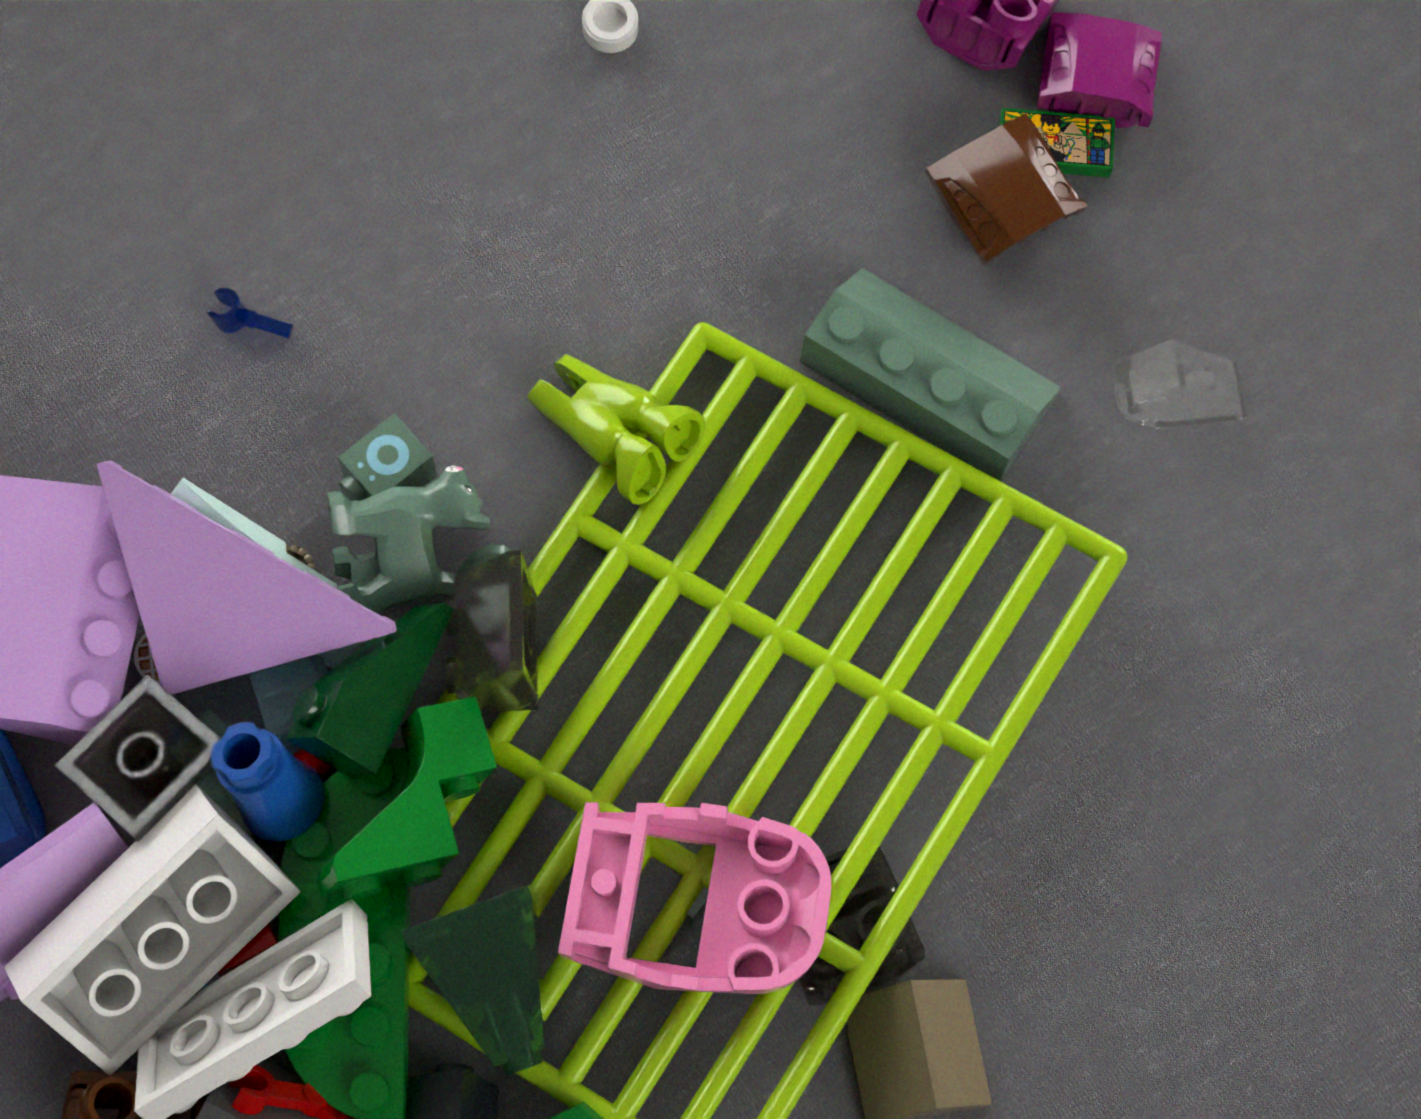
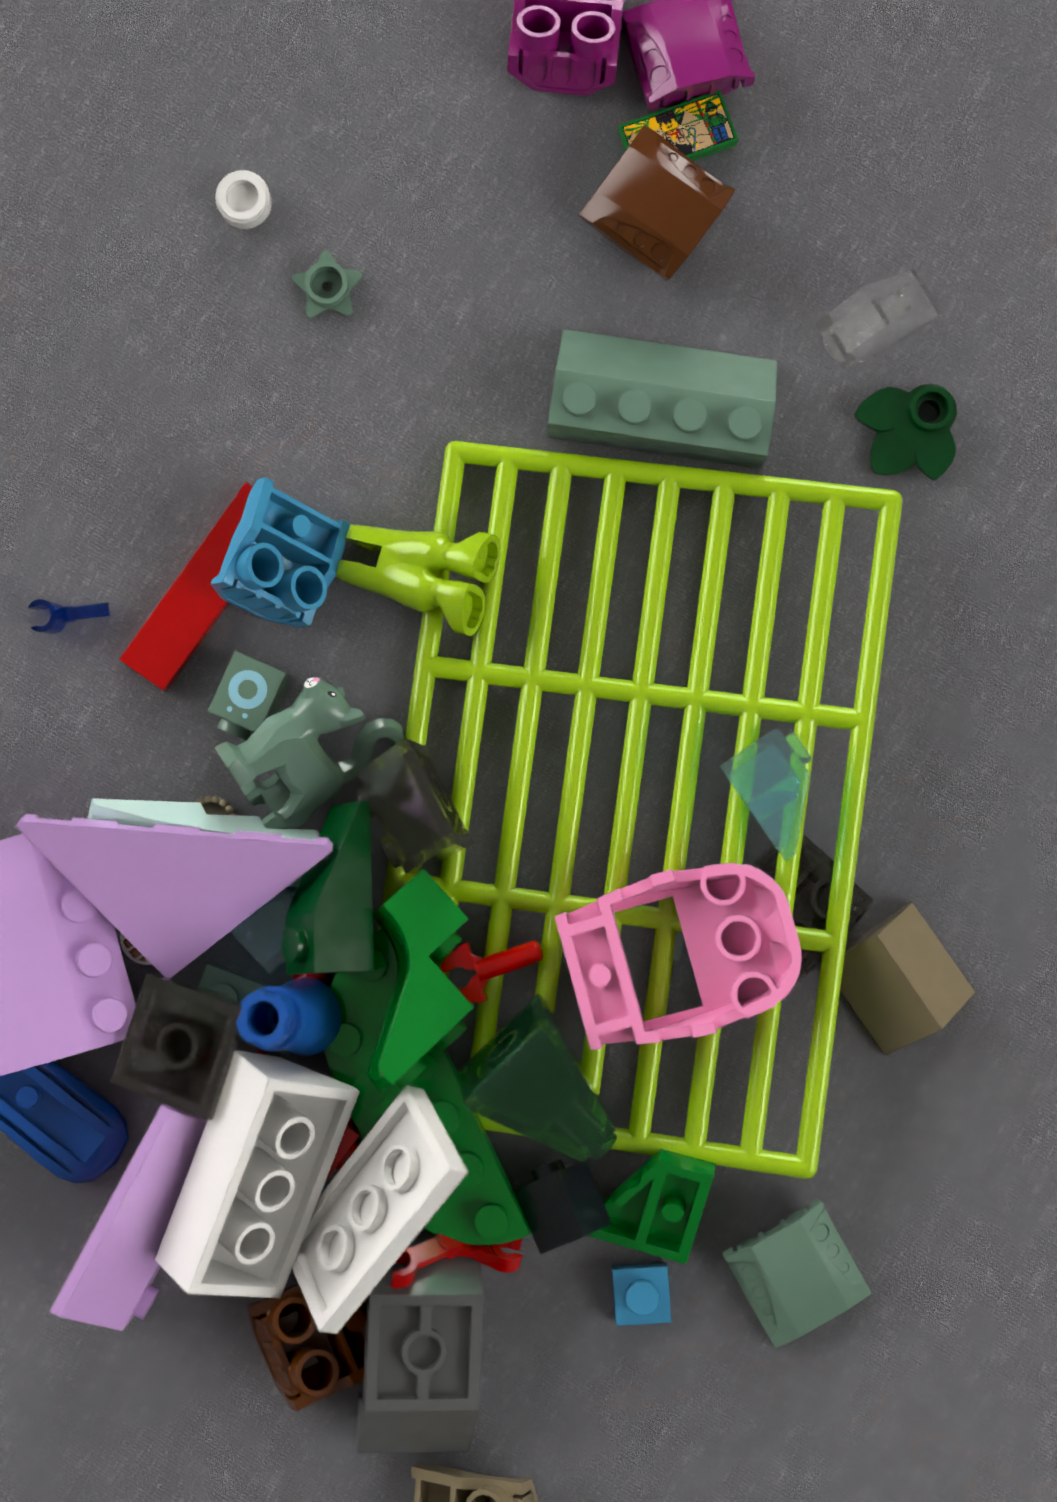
camera: 20 degrees left, 15 degrees up
(395, 351) = (187, 608): none -> red tile
(481, 351) = (280, 558): none -> dark azure slope
(495, 835) = (490, 966): none -> red bar
(655, 119) = (323, 272): none -> sand green plate
(869, 772) = (773, 786): none -> clear light blue slope
(1158, 511) = (906, 437): none -> dark green plate

